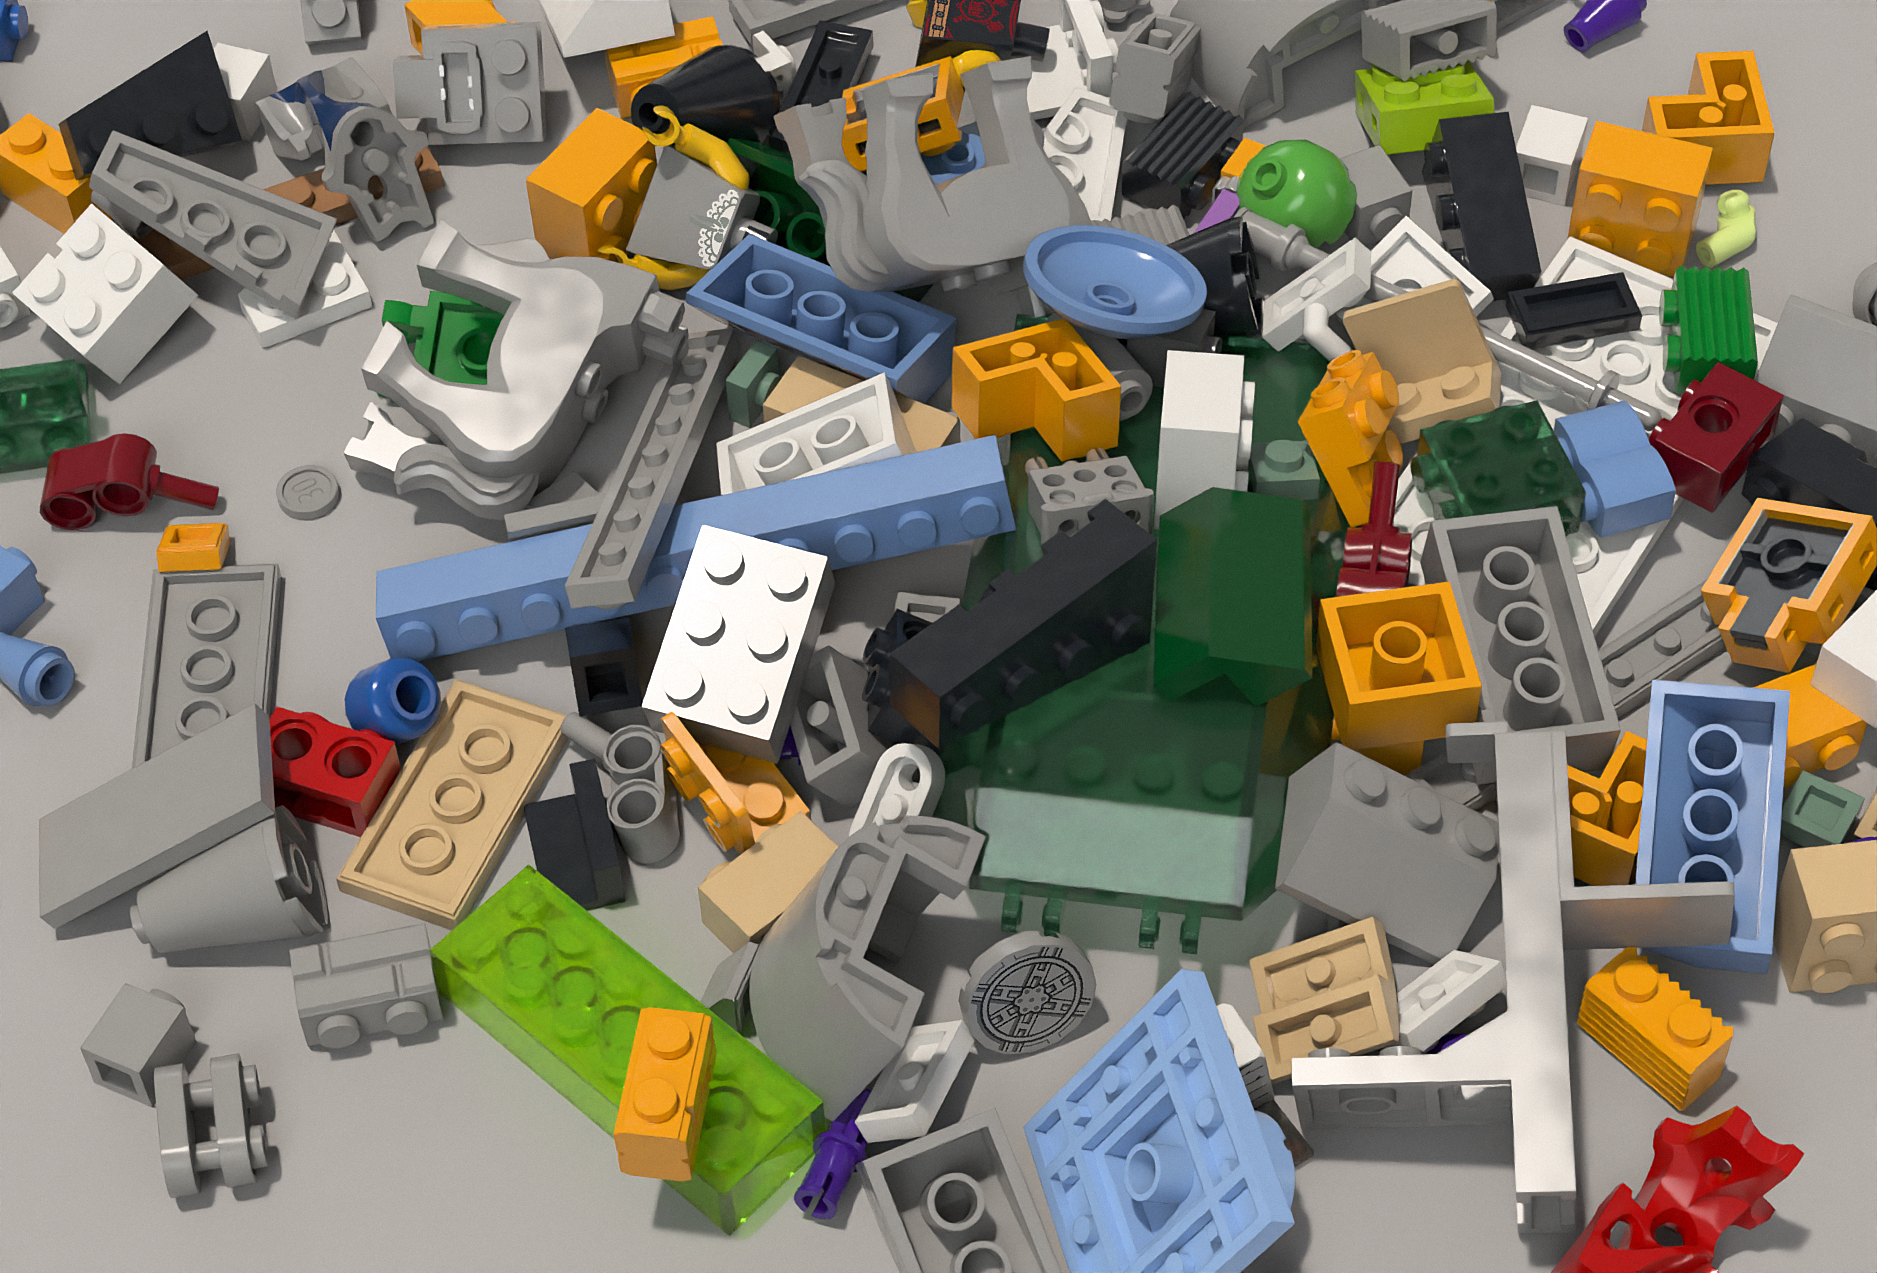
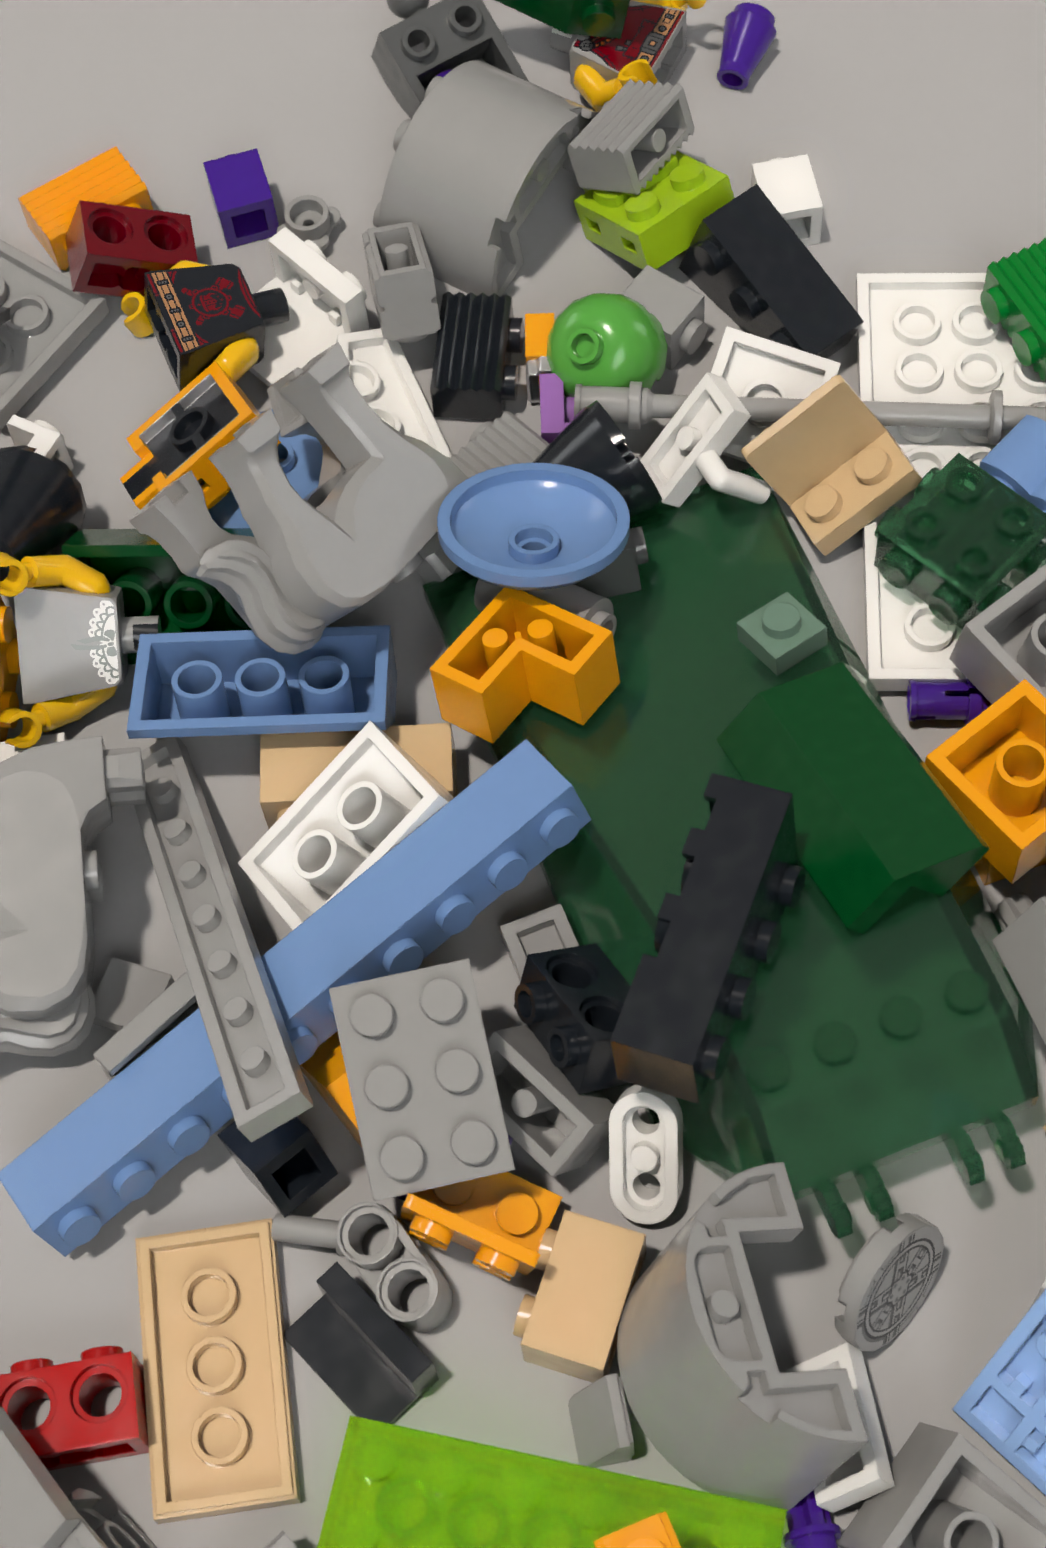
camera: 25 degrees left, 10 degrees up
(394, 700) = (96, 1303): blue head -> none
(752, 383) = (229, 779): sand green plate -> none
(828, 67) = (97, 443): black plate -> none
(1065, 493) = (643, 759): light grey piece -> none
(1203, 427) = (711, 641): white brick -> none
(1349, 431) = (819, 560): light orange plate -> none
(1377, 553) = (918, 679): dark red beam -> none
(1573, 310) = (910, 344): black tile -> none
(1640, 196) = (902, 209): light orange brick -> none
(1722, 112) = (912, 112): light orange brick -> none
(1735, 229) = (980, 199): yellowish green arm -> none

